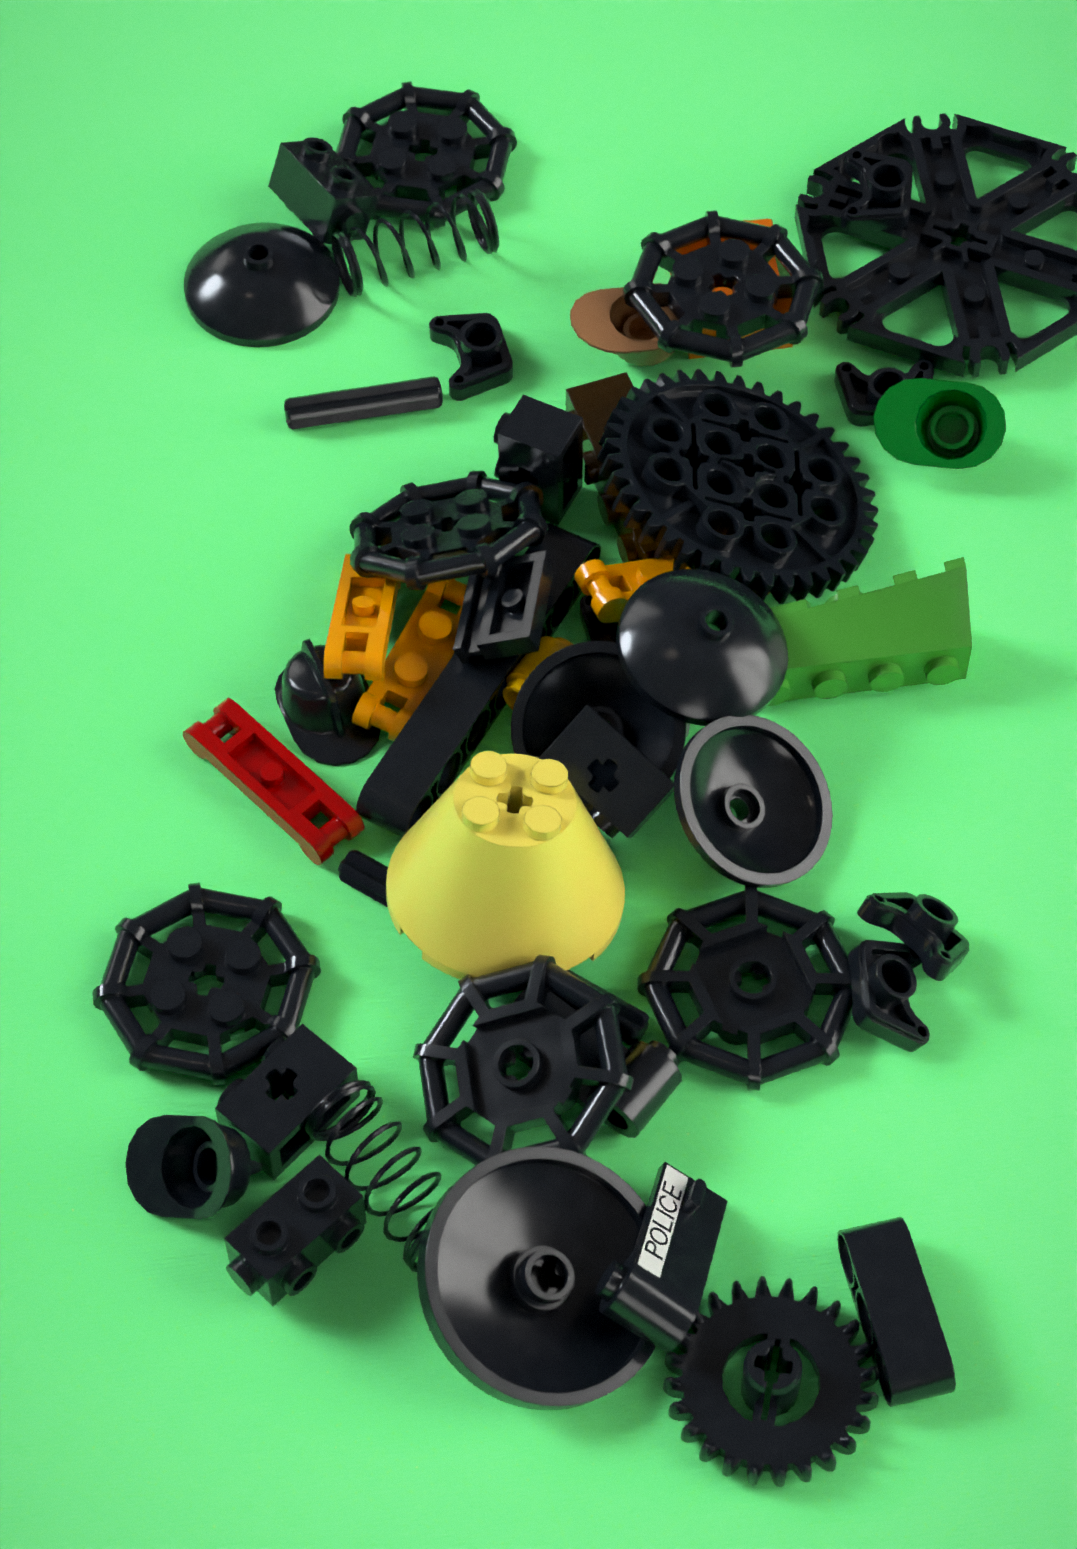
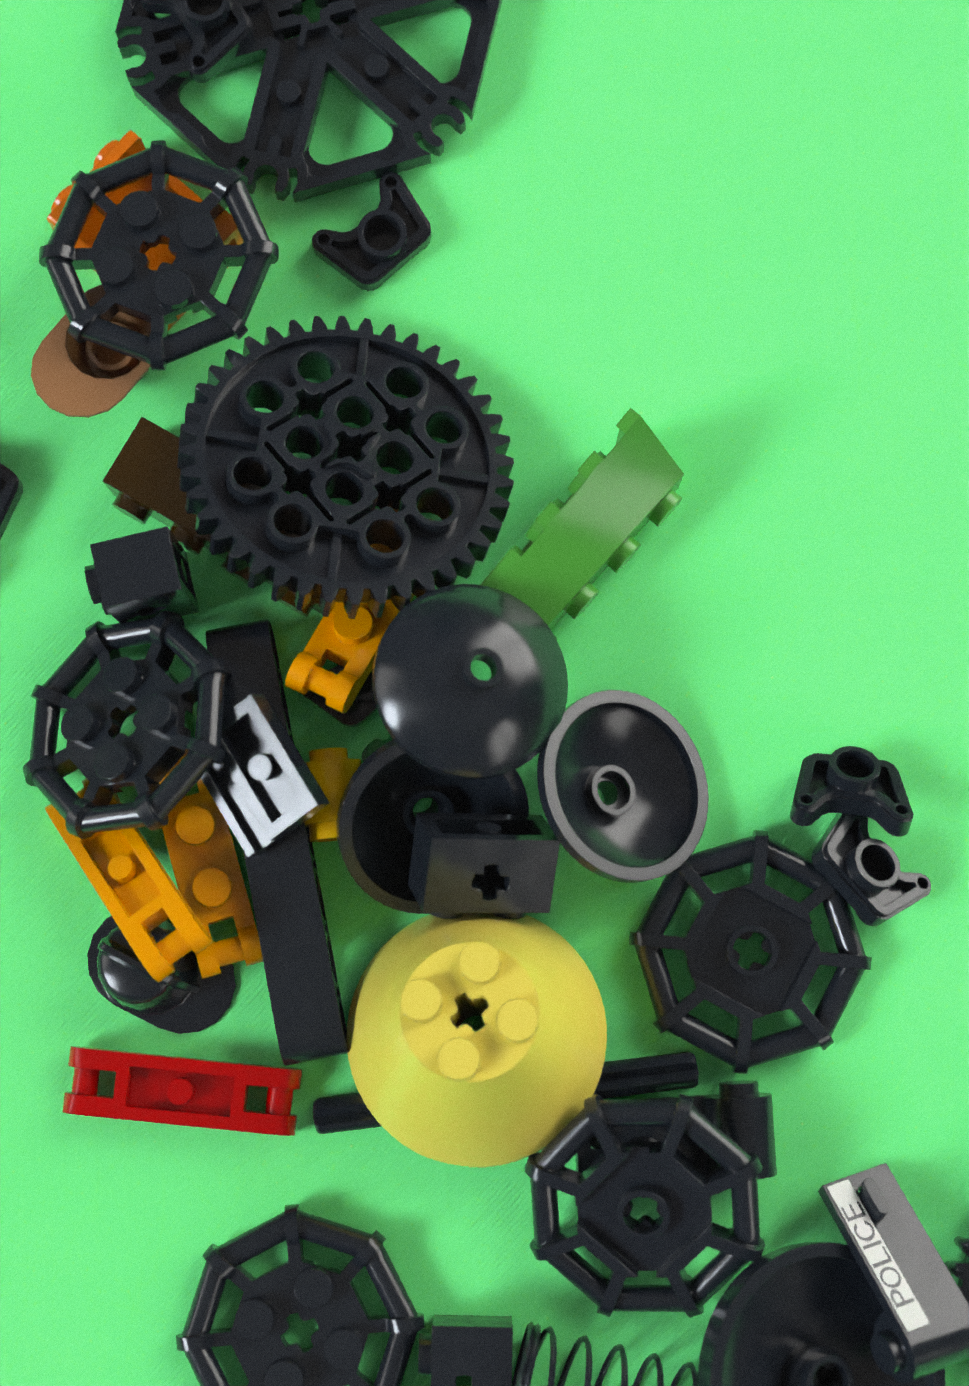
camera: 40 degrees left, 25 degrees up
(939, 423) = (467, 247): green piece -> none

